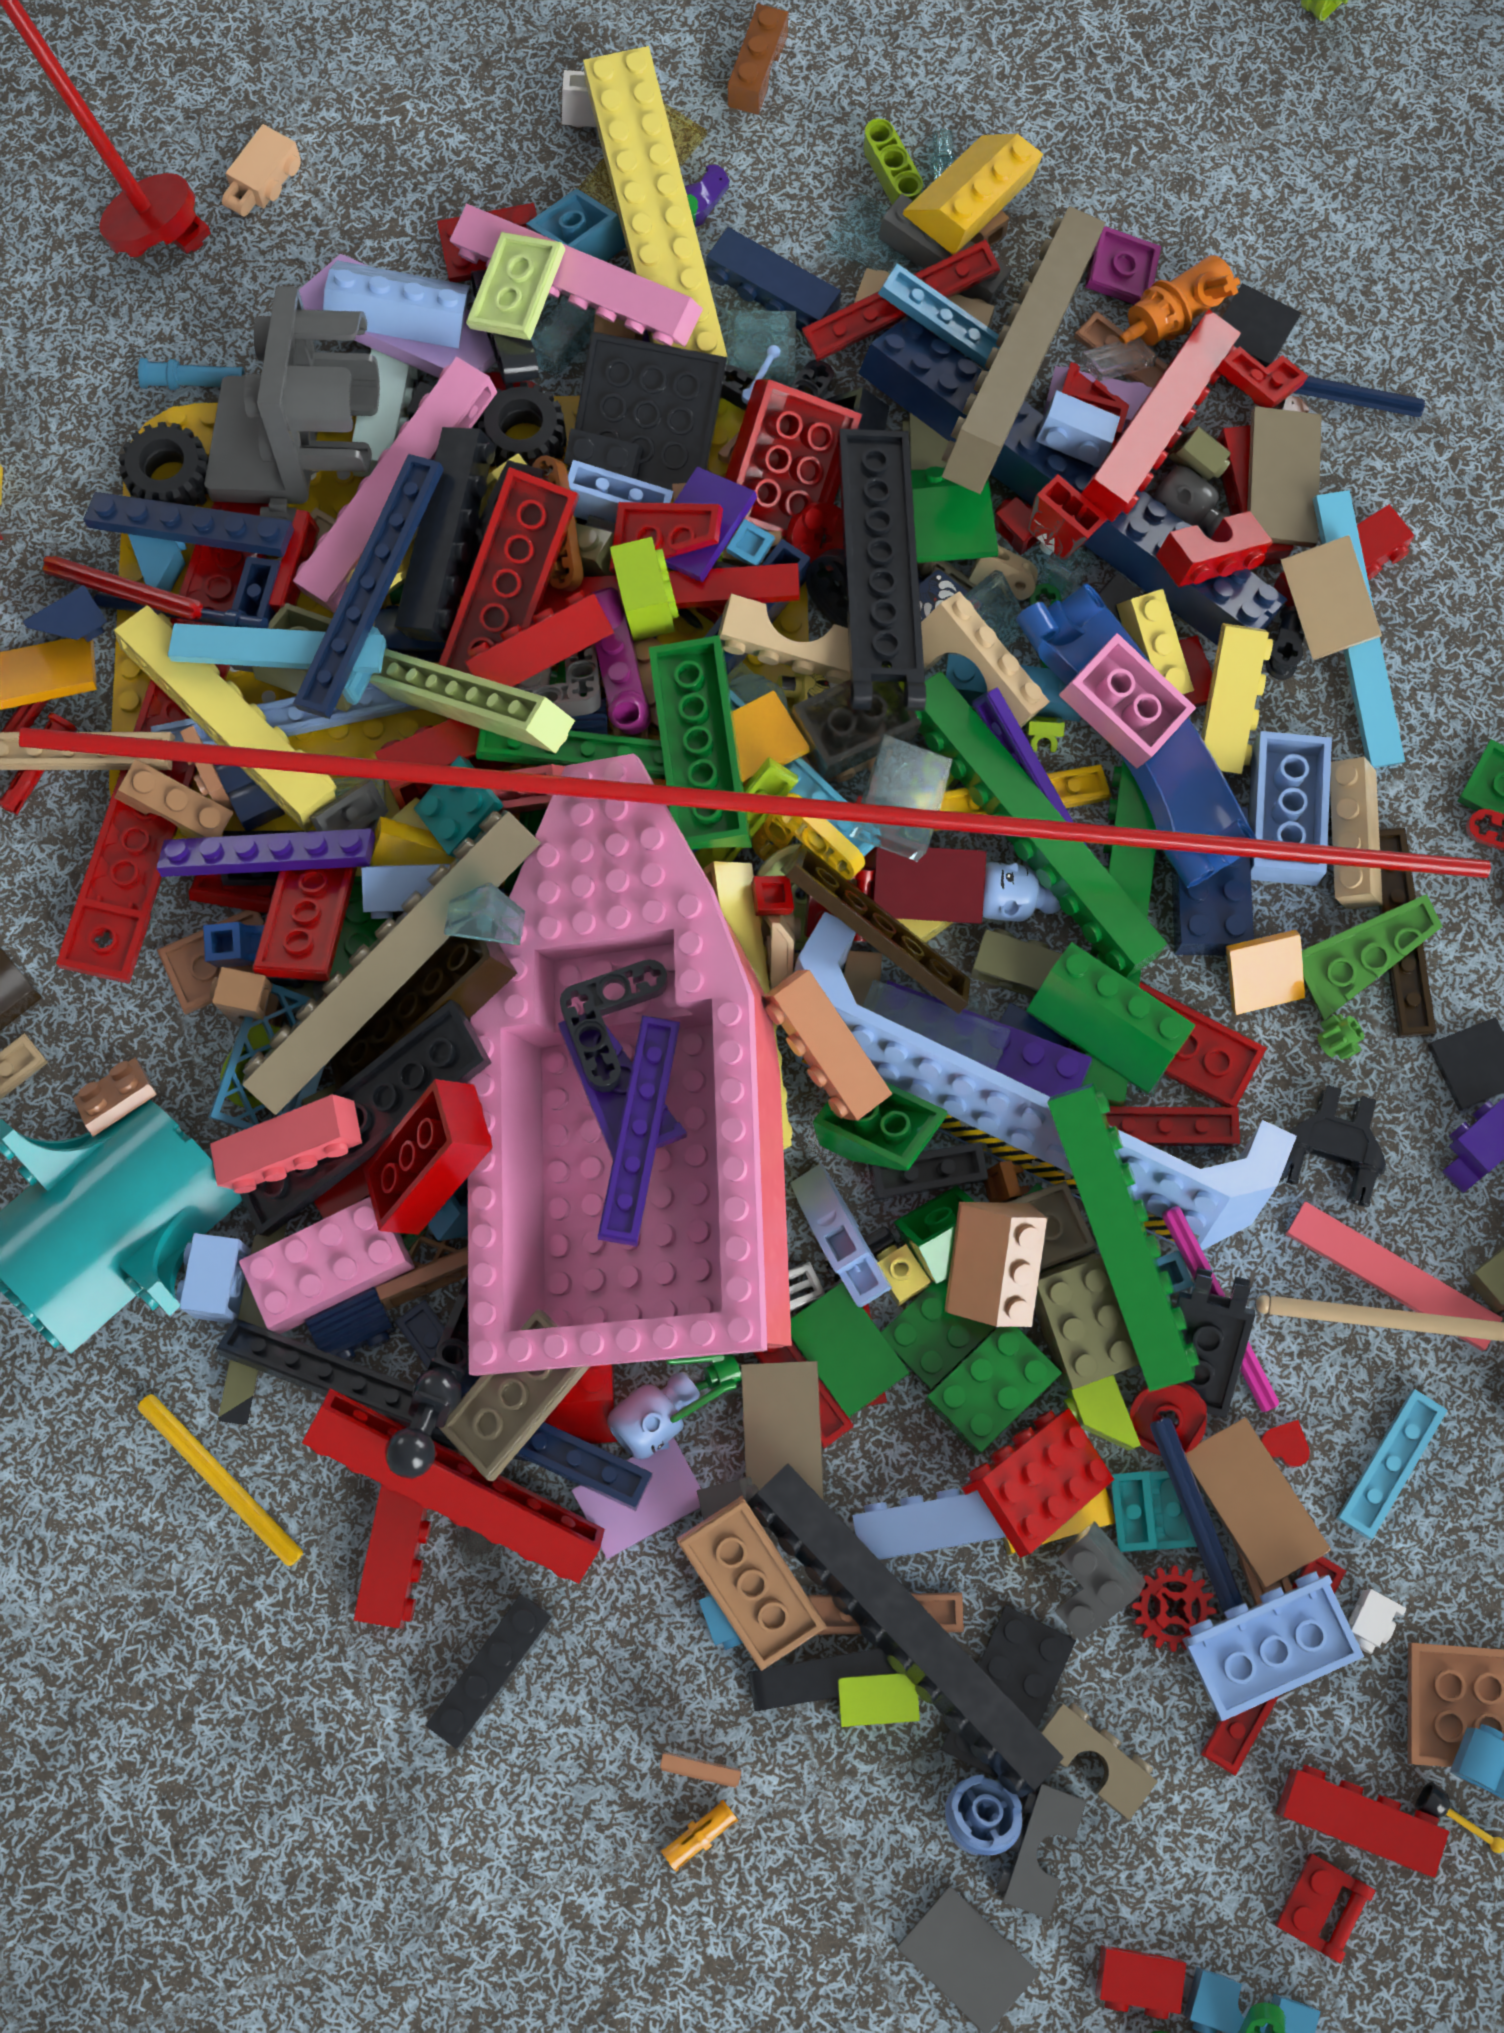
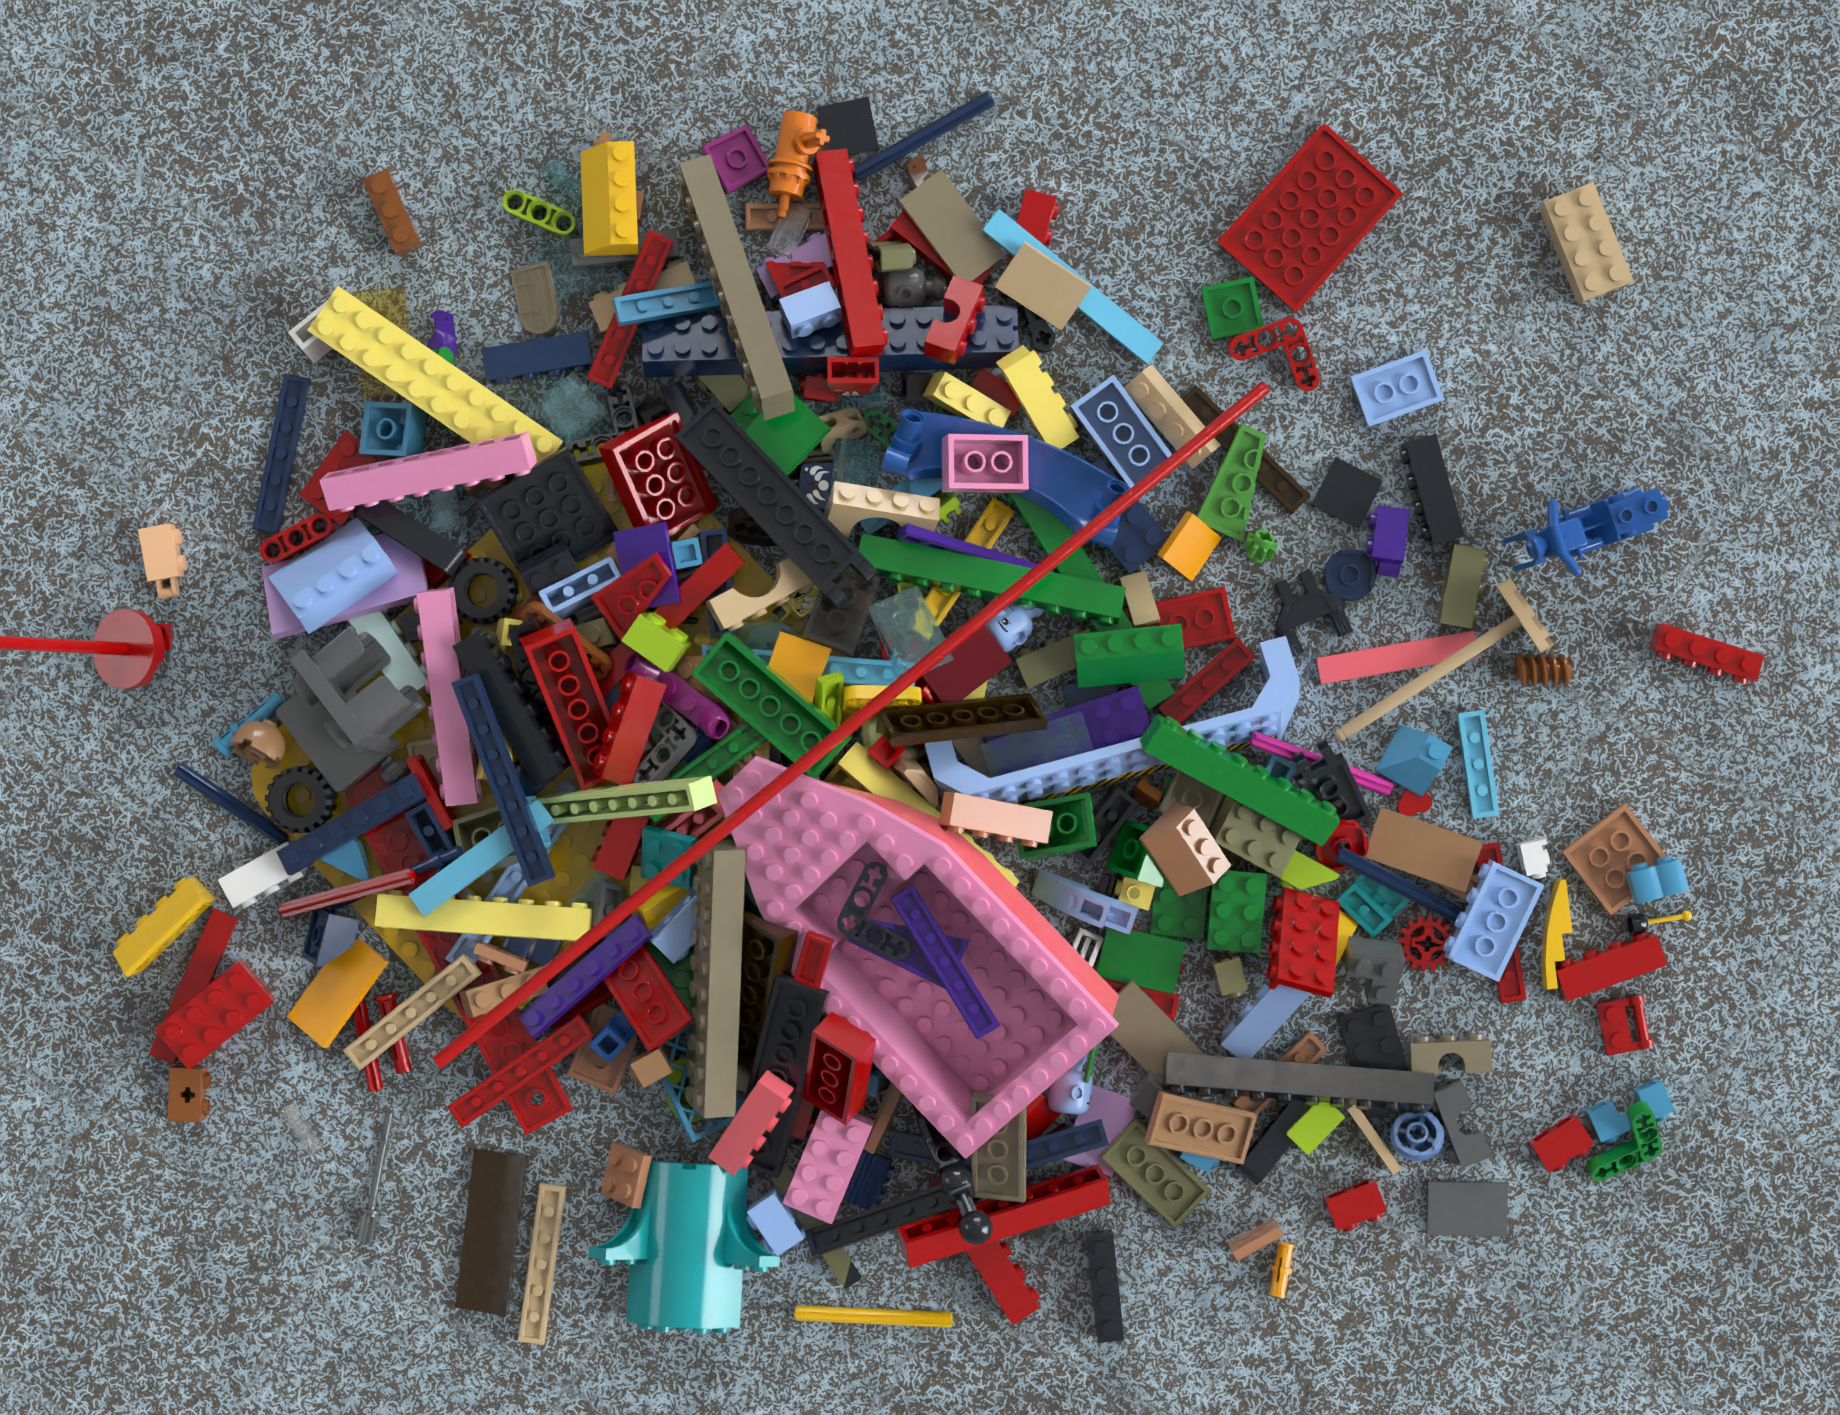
camera: 40 degrees left, 15 degrees up
(54, 512) = (256, 878): none -> white brick
(100, 425) = (231, 804): none -> dark blue axle
(113, 895) = (521, 1071): none -> red tile
(180, 389) = (259, 742): none -> medium nougat cylinder
(385, 244) = (285, 543): none -> red beam
(455, 178) = (281, 454): none -> dark blue tile
(486, 916) = (755, 919): clear light blue slope -> none
(506, 1015) = (813, 959): none -> red tile
(515, 285) = (403, 512): yellowish green tile -> none
(655, 1598) = (1154, 1174): none -> olive tile
(773, 352) = (587, 413): light blue hinge -> none
(811, 521) = (702, 508): red plate -> none
(821, 233) = (536, 297): none -> dark tan window
(845, 1836) = (1355, 1205): none -> red brick
(925, 1447) = (1228, 976): none -> olive brick
(930, 1776) = (1373, 1138): none -> tan tile
(1169, 977) = (1140, 599): none -> tan tile
(1264, 385) = (889, 177): red plate -> none
(1324, 1396) = (1413, 759): none -> dark azure slope
(1339, 1718) = (1556, 923): none -> yellow slope
(1403, 1154) = (1342, 578): none -> dark blue tile

